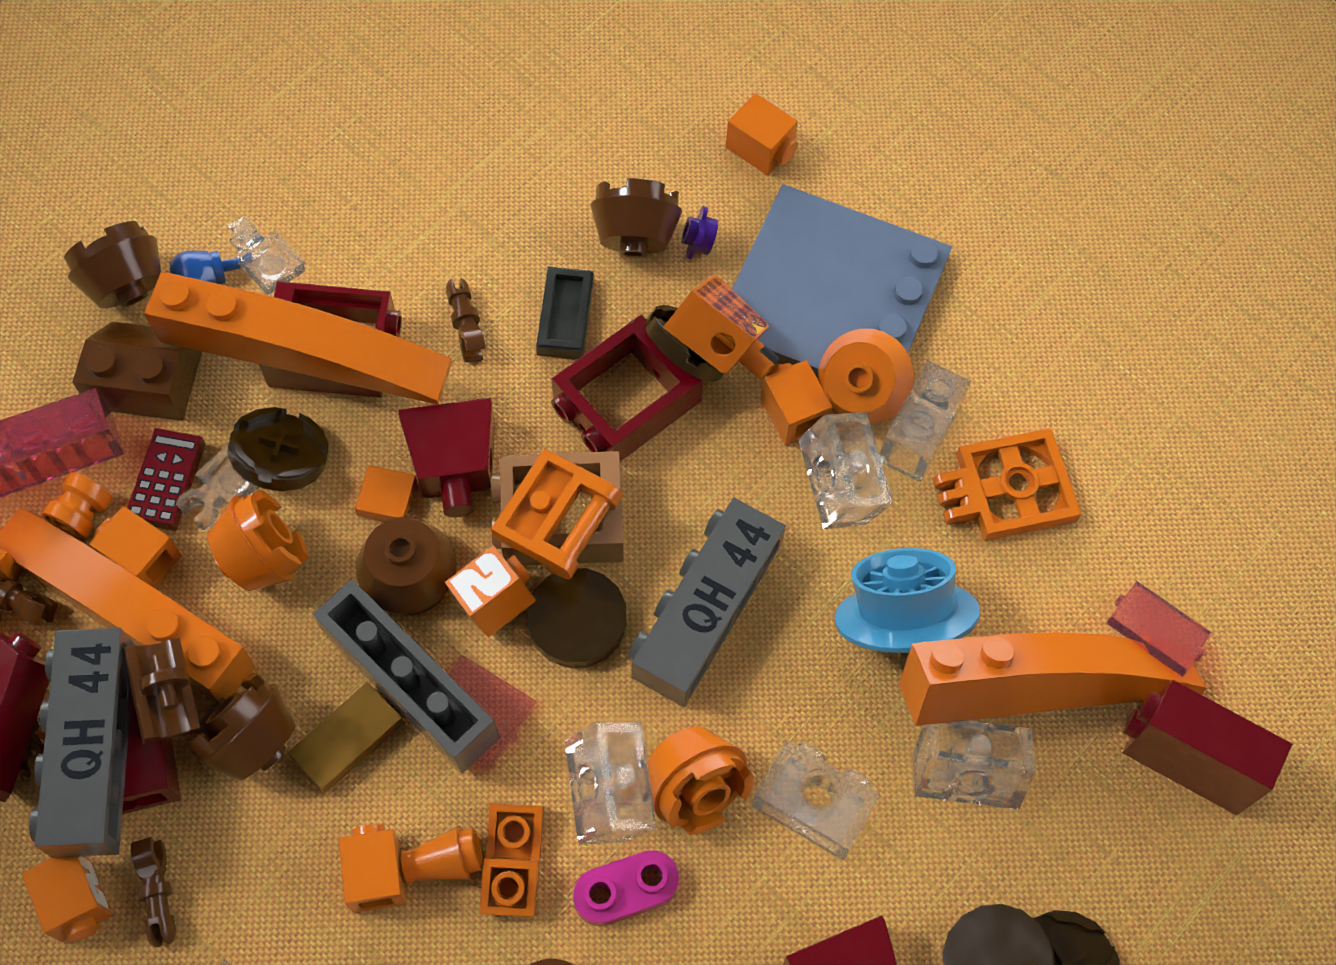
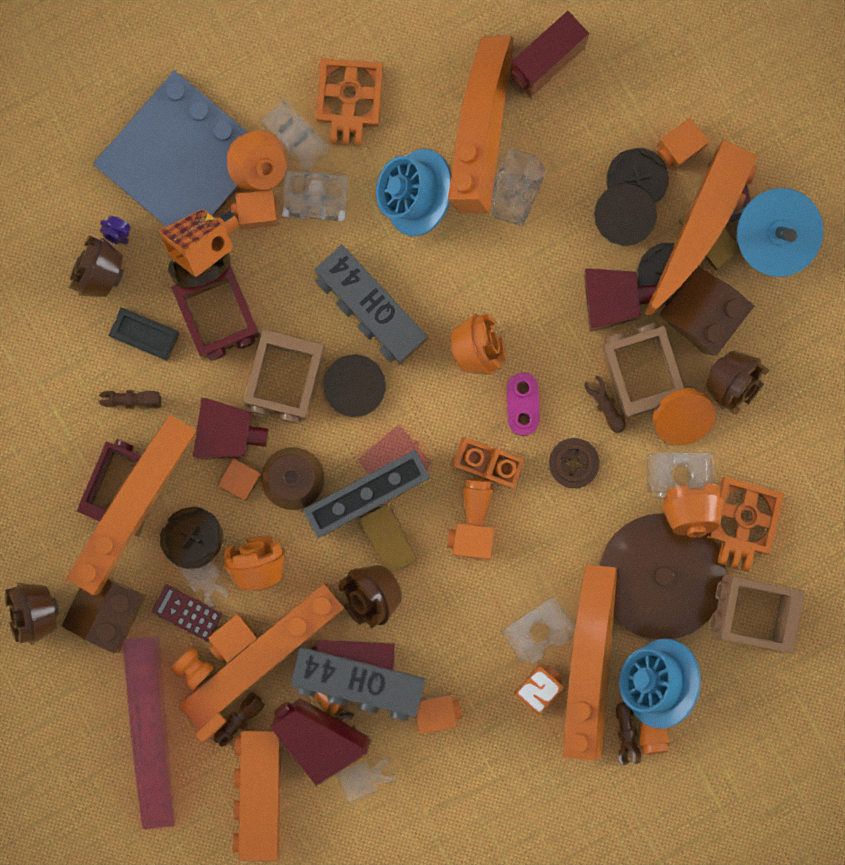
camera: 70 degrees left, 20 degrees up
(150, 864) = (429, 665): reddish brown piece -> none
(161, 690) = (342, 632): reddish brown hips -> none
(202, 265) = (42, 562): blue piece -> none
(264, 258) = (48, 515): clear plate -> none
(492, 590) = (327, 430): orange brick -> none
(541, 506) = (289, 385): orange plate -> none
(610, 783) = (466, 395): clear brick -> none
(762, 134) = (52, 164): orange brick -> none
(829, 826) = (501, 299): clear brick -> none
(1159, 628) = (468, 47): clear pink piece -> none

